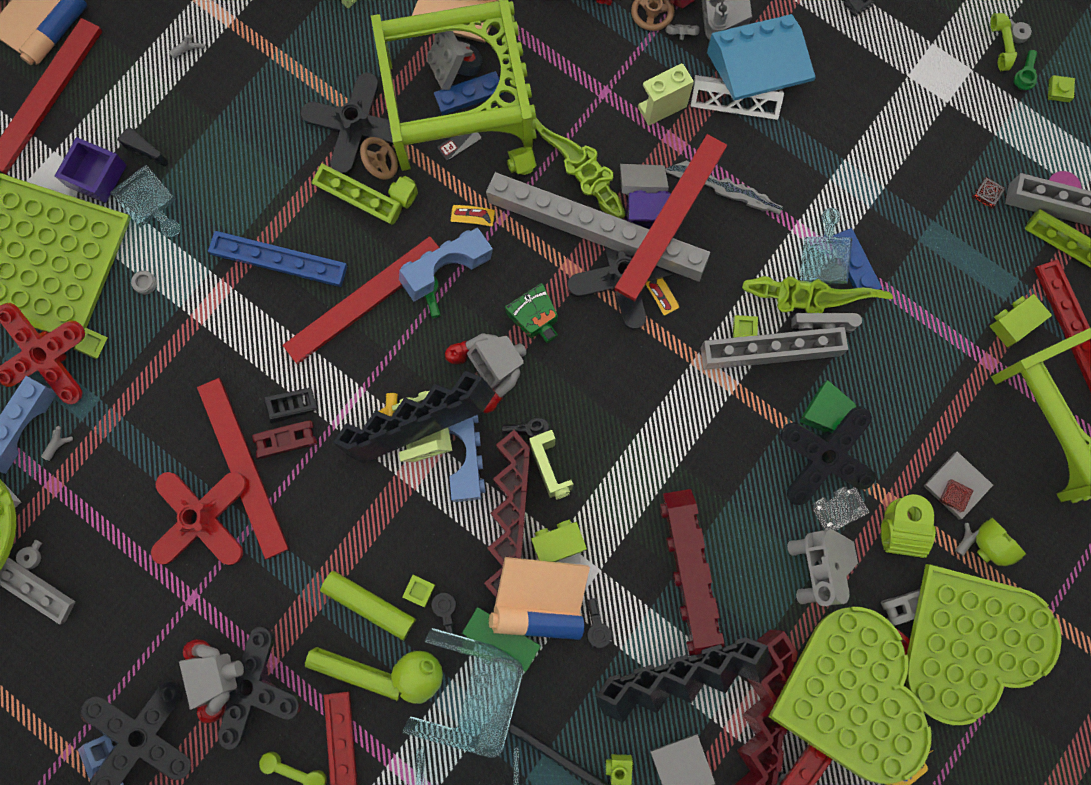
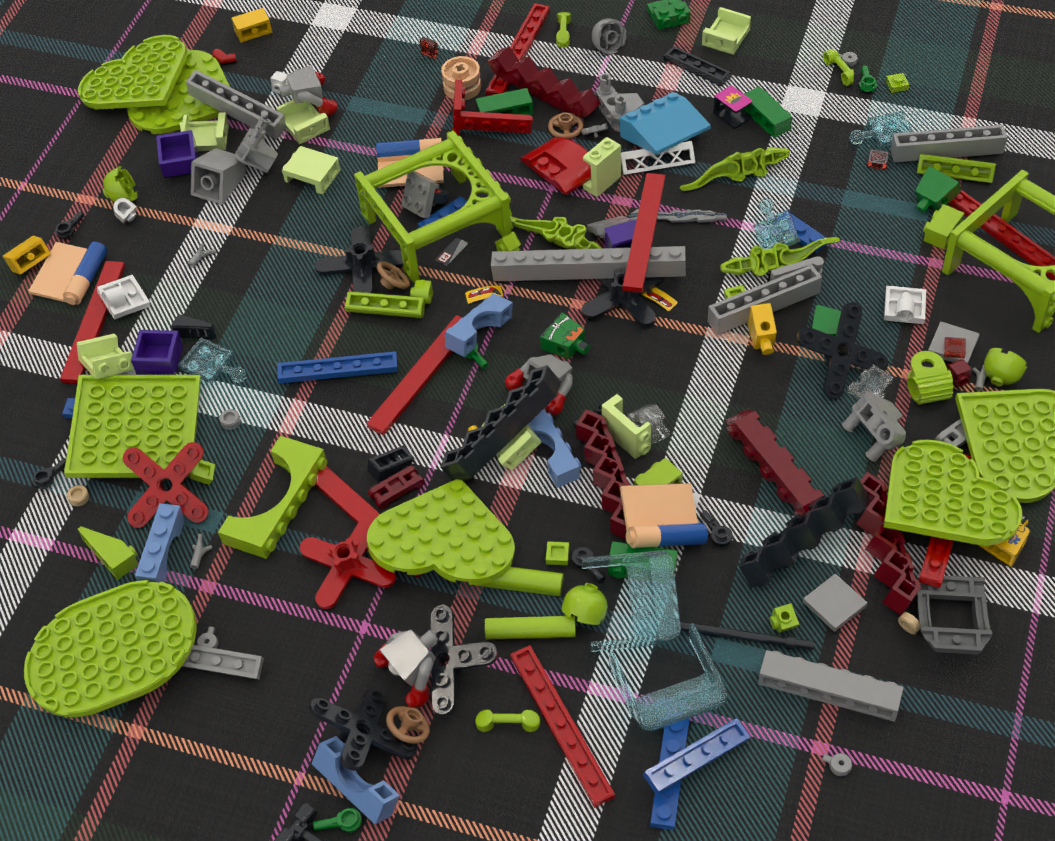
camera: 15 degrees left, 25 degrees down
(32, 156) = (103, 356): none -> yellowish green panel
(81, 77) = (123, 296): none -> white plate
(125, 447) = (261, 532): none -> lime arch
(198, 745) = (411, 721): none -> medium nougat piece
(306, 527) = (443, 533): none -> lime plate
(581, 460) = (653, 415): none -> clear cylinder
(623, 63) = (560, 164): none -> red slope
(757, 380) = (762, 328): none -> yellow torso
(826, 146) = (741, 164): none -> lime animal
(852, 57) = (732, 107): none -> piece
(889, 77) = (768, 112): none -> green brick
(928, 411) = (905, 304): none -> white plate
(947, 527) = (960, 372): none -> dark red plate
(1016, 154) = (882, 128): none -> clear light blue plate
(1033, 268) = (935, 190): none -> green torso

